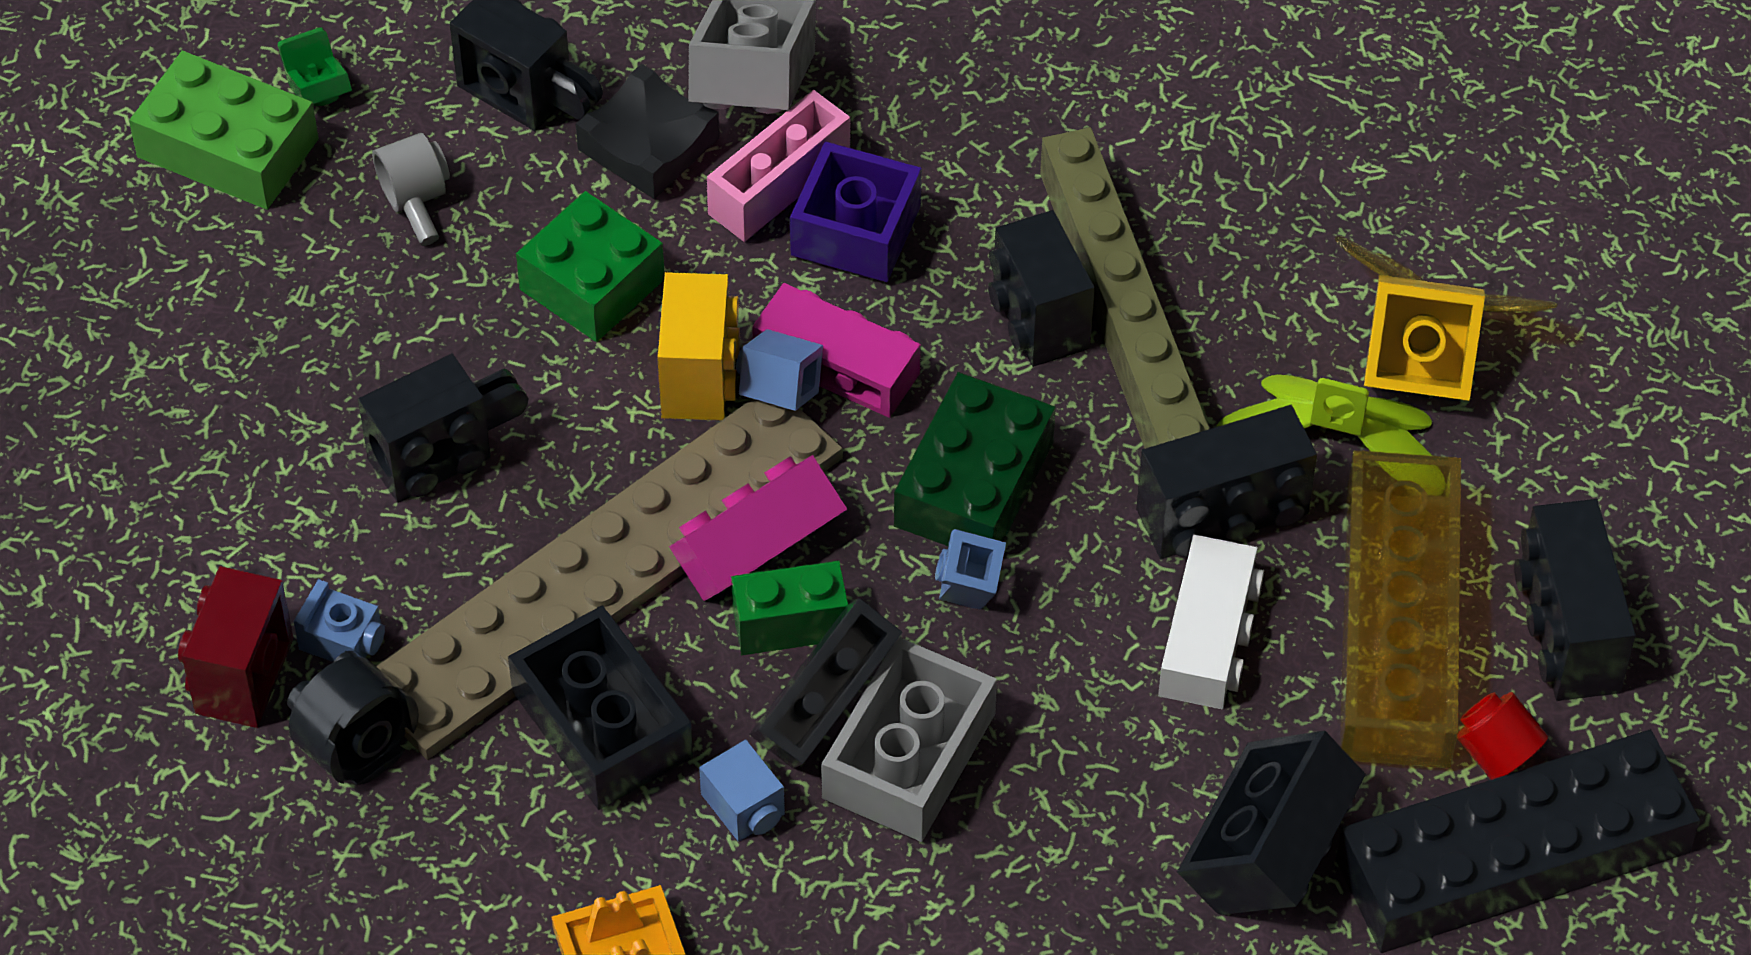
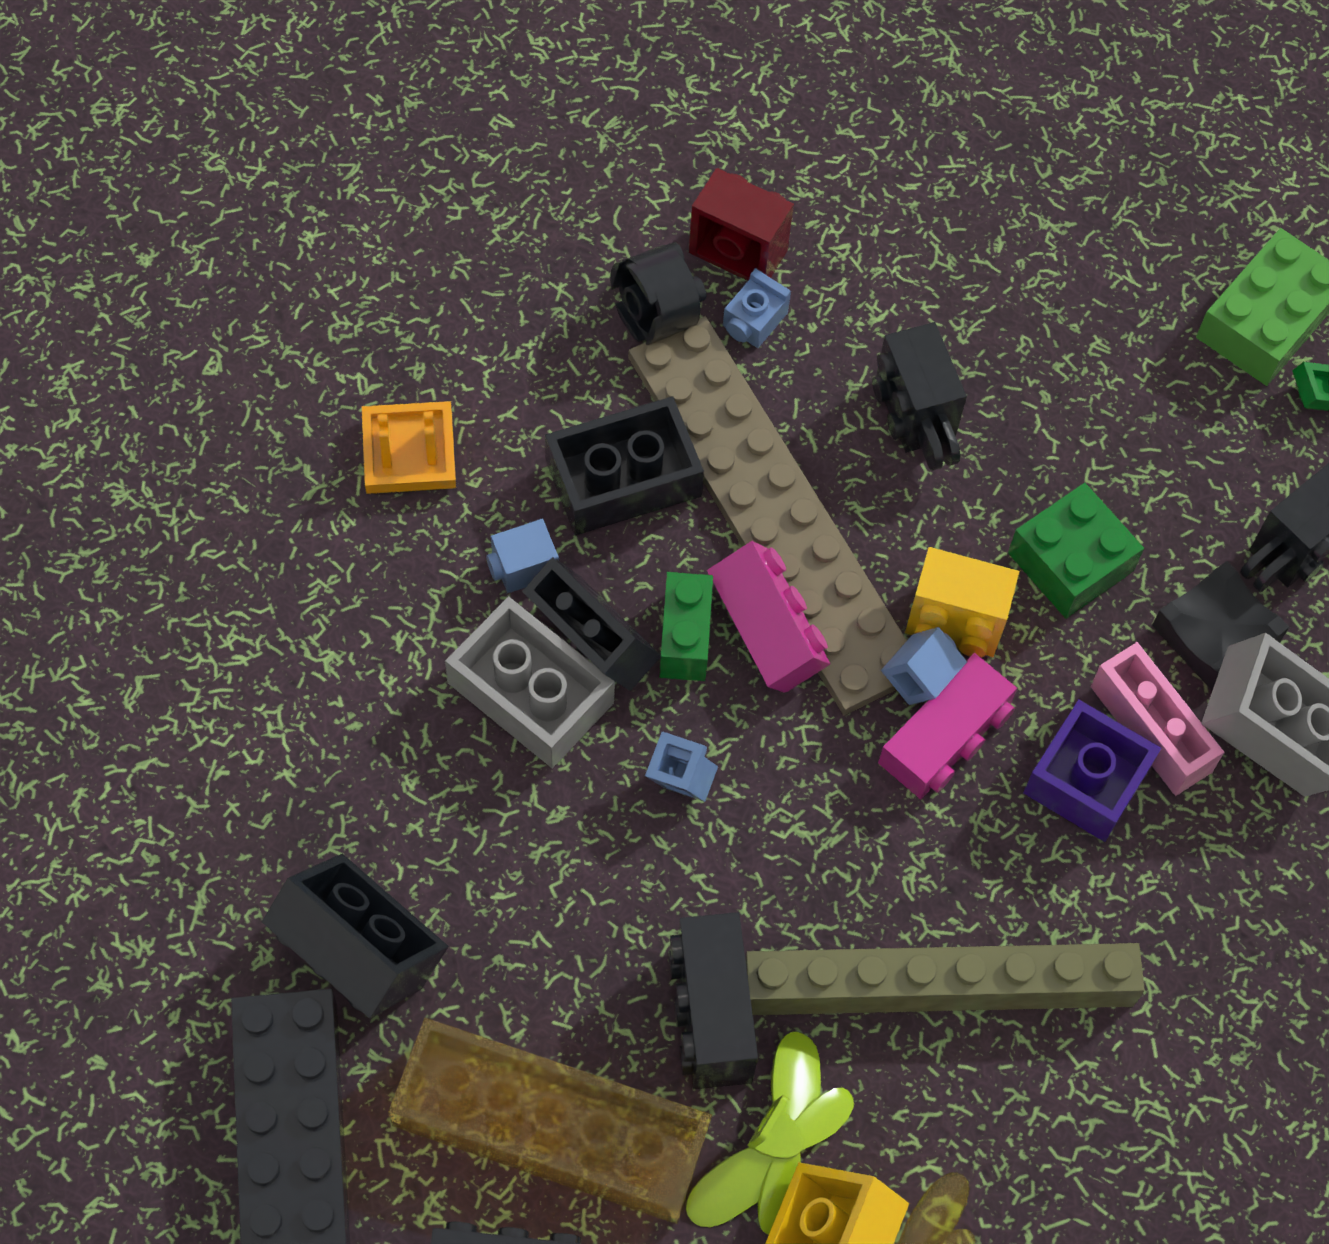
camera: 100 degrees right, 10 degrees up
(412, 174) = (1201, 433): light grey piece -> none
(974, 462) = (794, 804): dark green brick -> none
(1041, 288) = (967, 899): black brick -> none
(1210, 622) = (587, 958): white brick -> none
(1500, 734) = (383, 1159): red piece -> none

